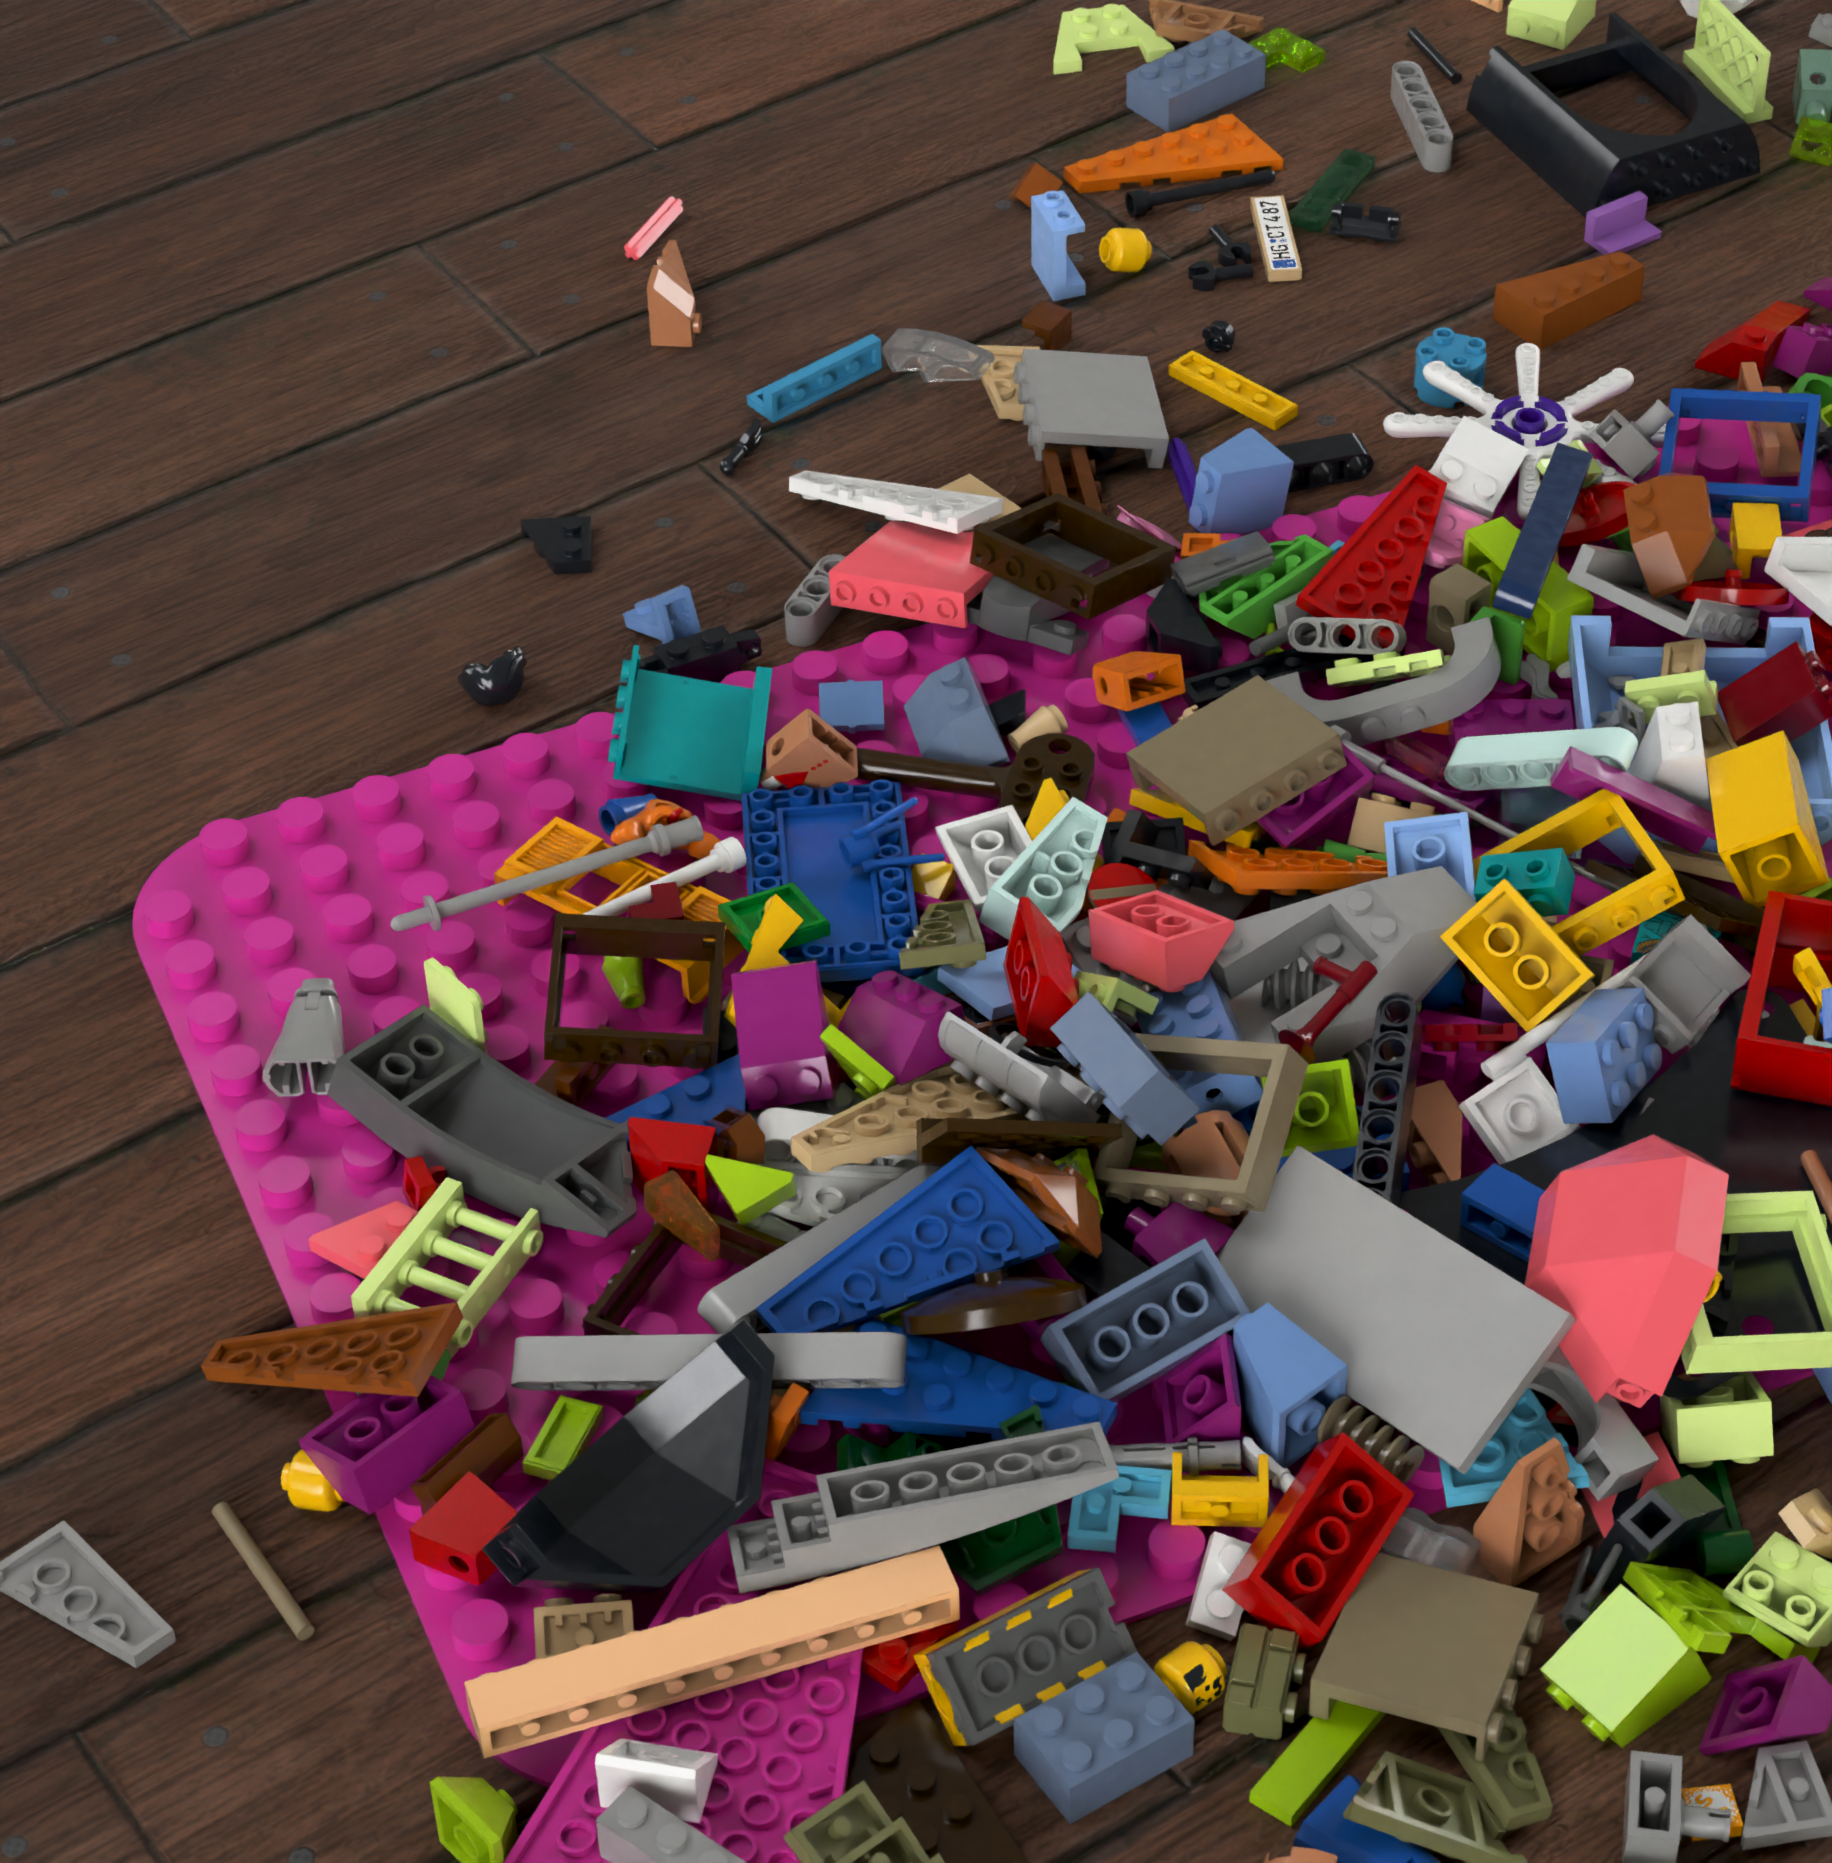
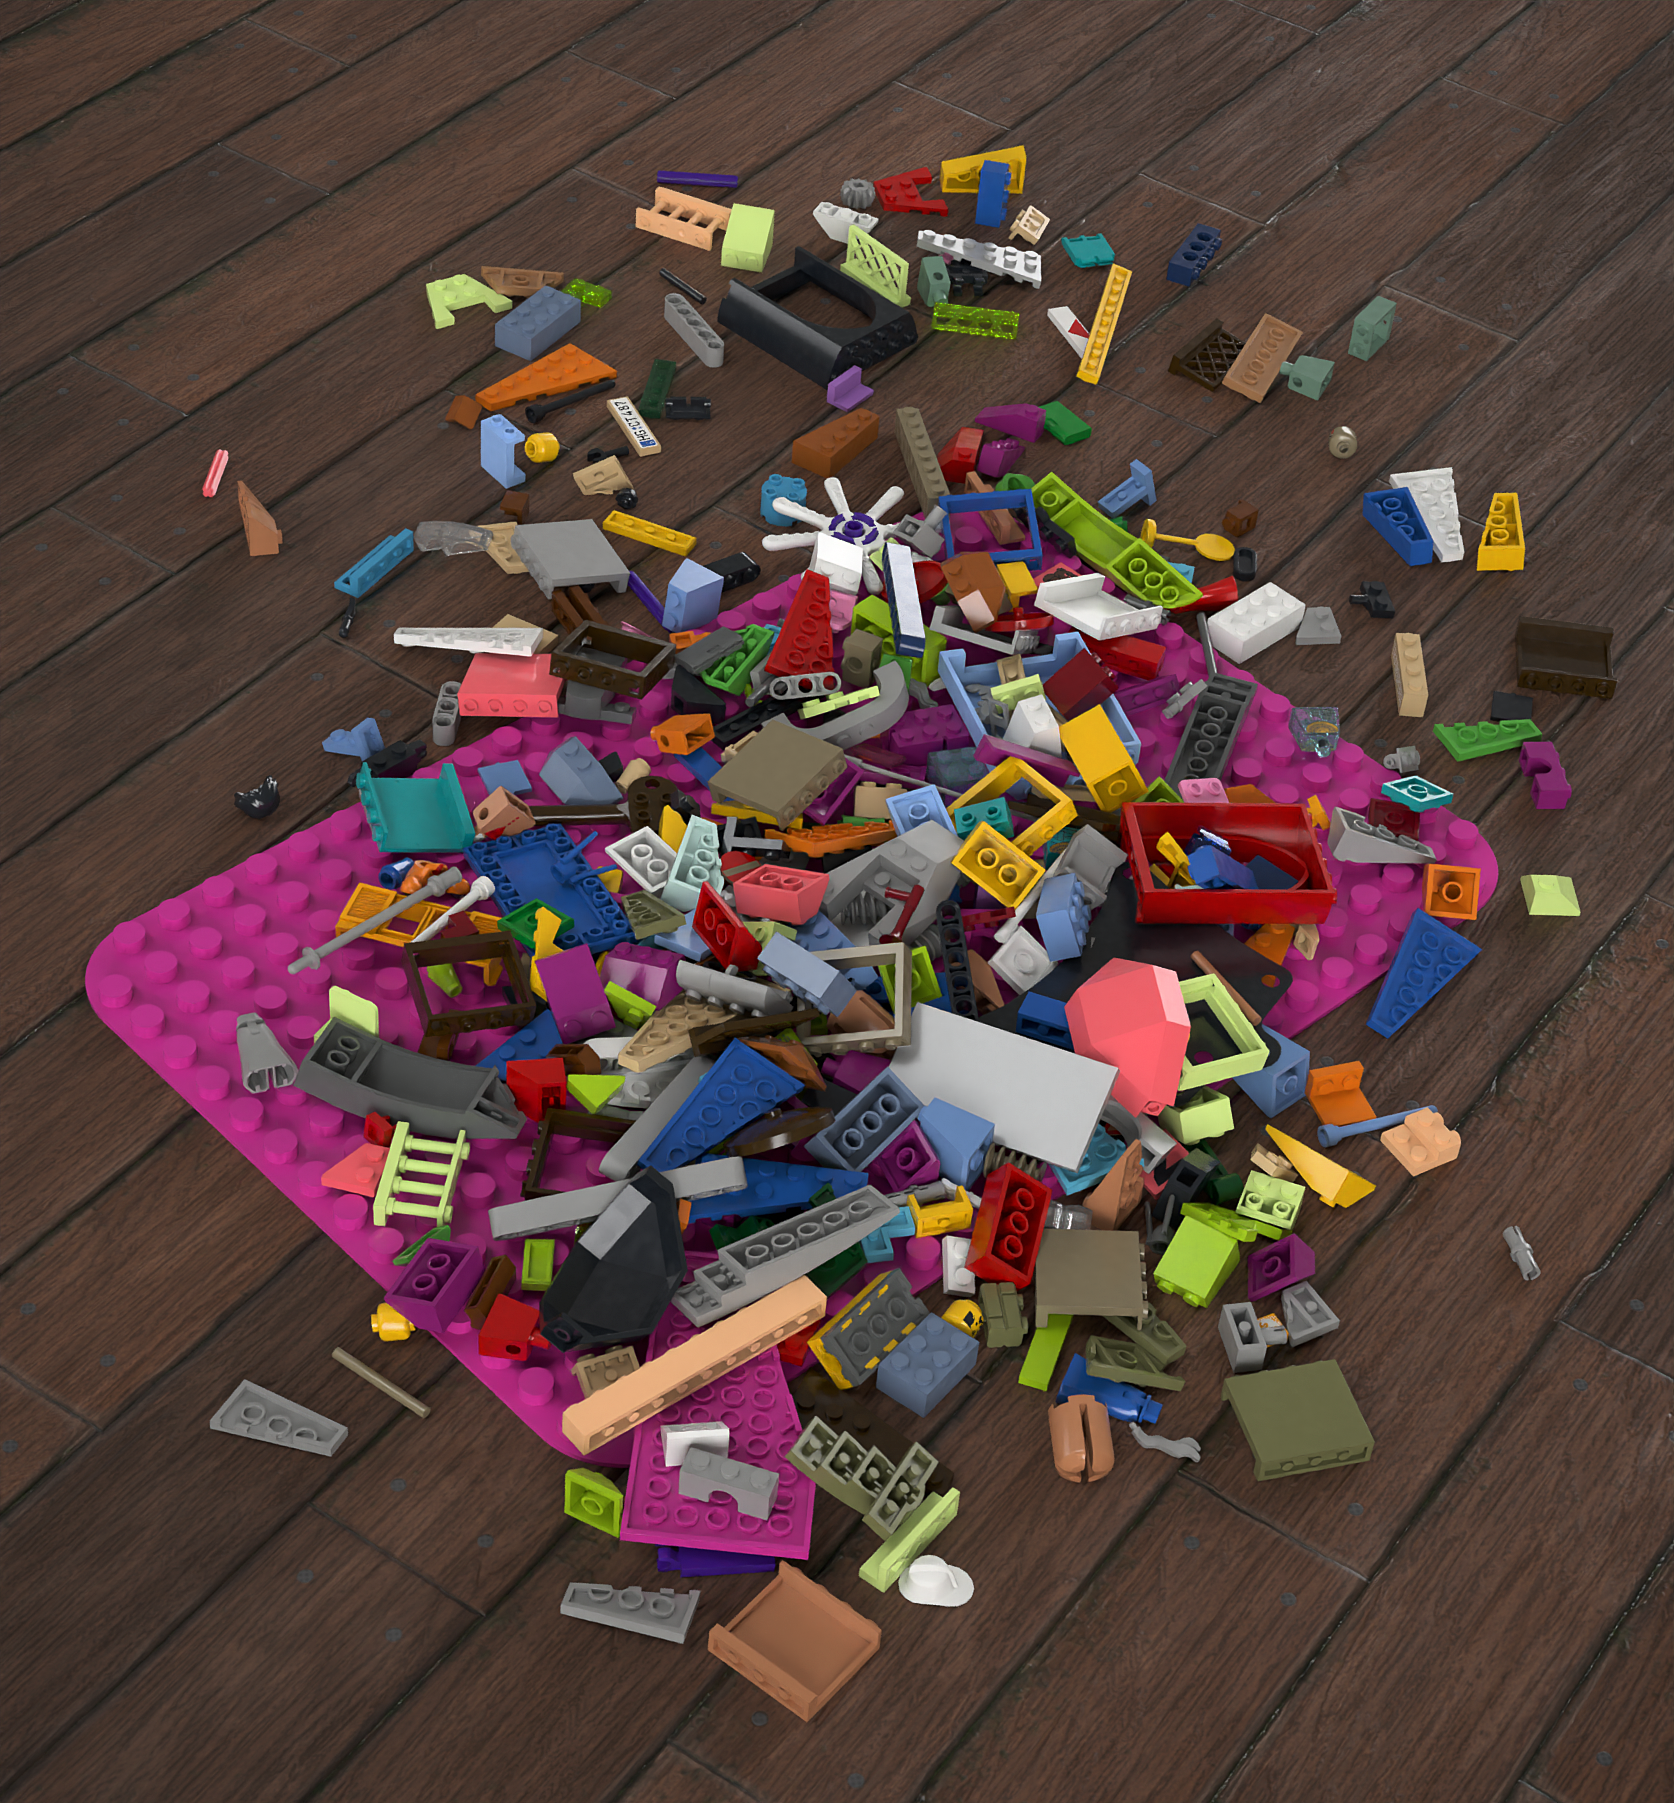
camera: 25 degrees left, 0 degrees up
(362, 1354) = (399, 1237): dark orange wing -> none
(562, 542) = (257, 700): black wing -> none
(679, 1211) = (561, 1114): clear orange slope -> none
(1089, 787) = (684, 805): none -> black bracket
(1192, 302) = (602, 477): none -> tan wing
(1229, 249) = (608, 439): black bar -> none
(1532, 757) = (952, 744): light aqua beam -> none
(1684, 330) = (920, 458): none -> dark tan brick

